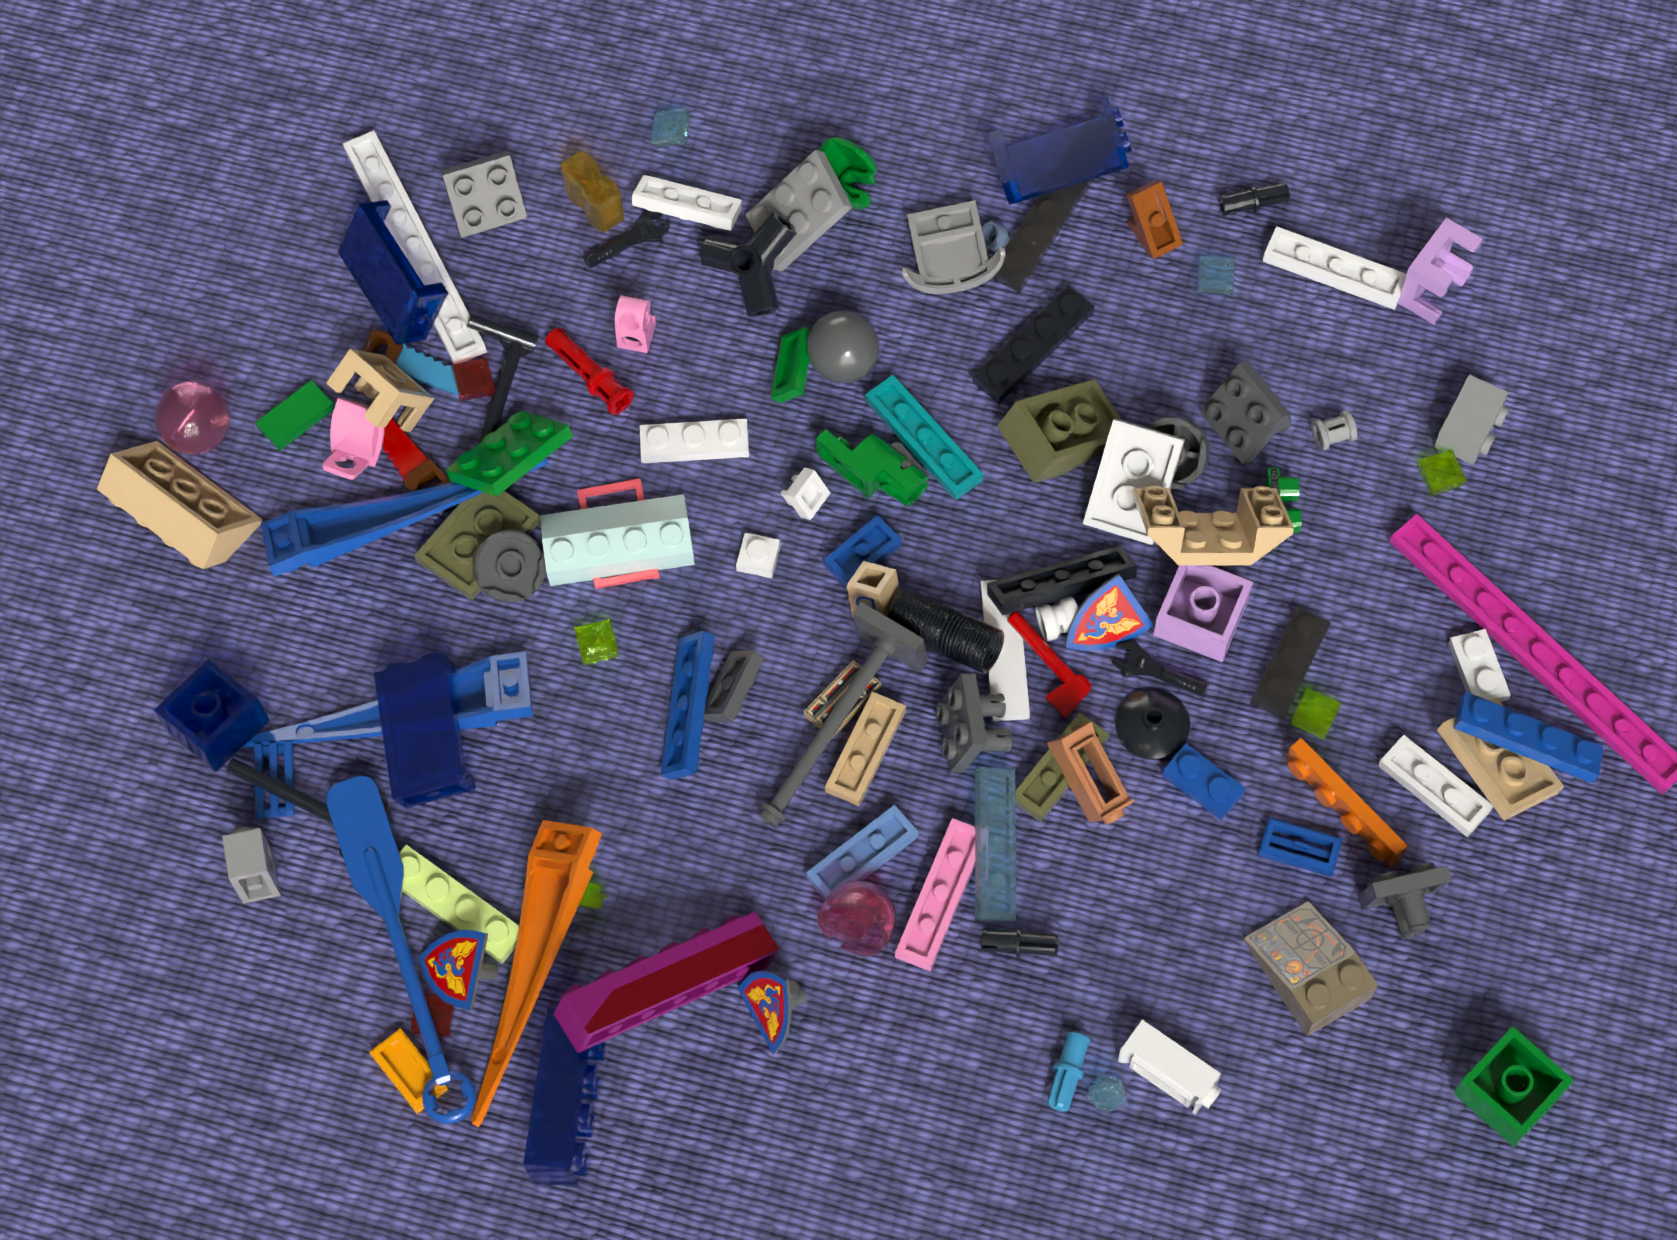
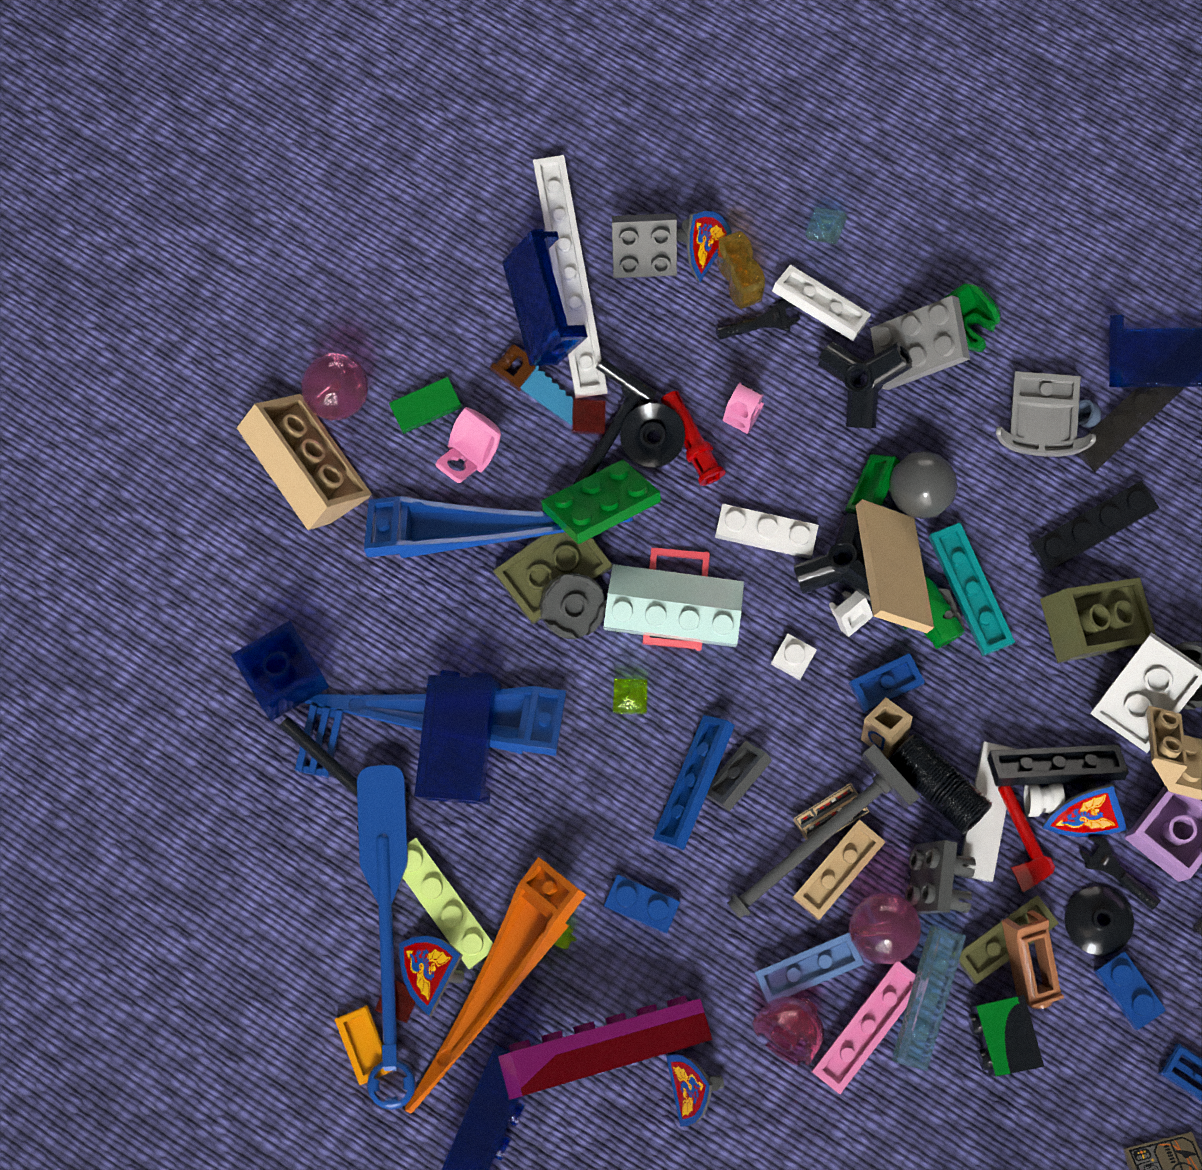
camera: 15 degrees right, 10 degrees up
(251, 865) = (277, 820): light grey brick -> none
(387, 379) = (515, 405): tan panel -> none
(409, 459) = (513, 475): red piece -> none
(540, 363) = (643, 422): none -> black dish
(543, 172) = (702, 239): none -> shield
(668, 843) = (641, 904): none -> blue plate
(785, 445) = (828, 568): none -> black piece
(833, 428) = (894, 567): none -> tan tile
(928, 786) = (885, 928): none -> clear pink piece
(1019, 942) = (924, 1093): black axle -> none
(1085, 857) = (1005, 1036): none -> black slope

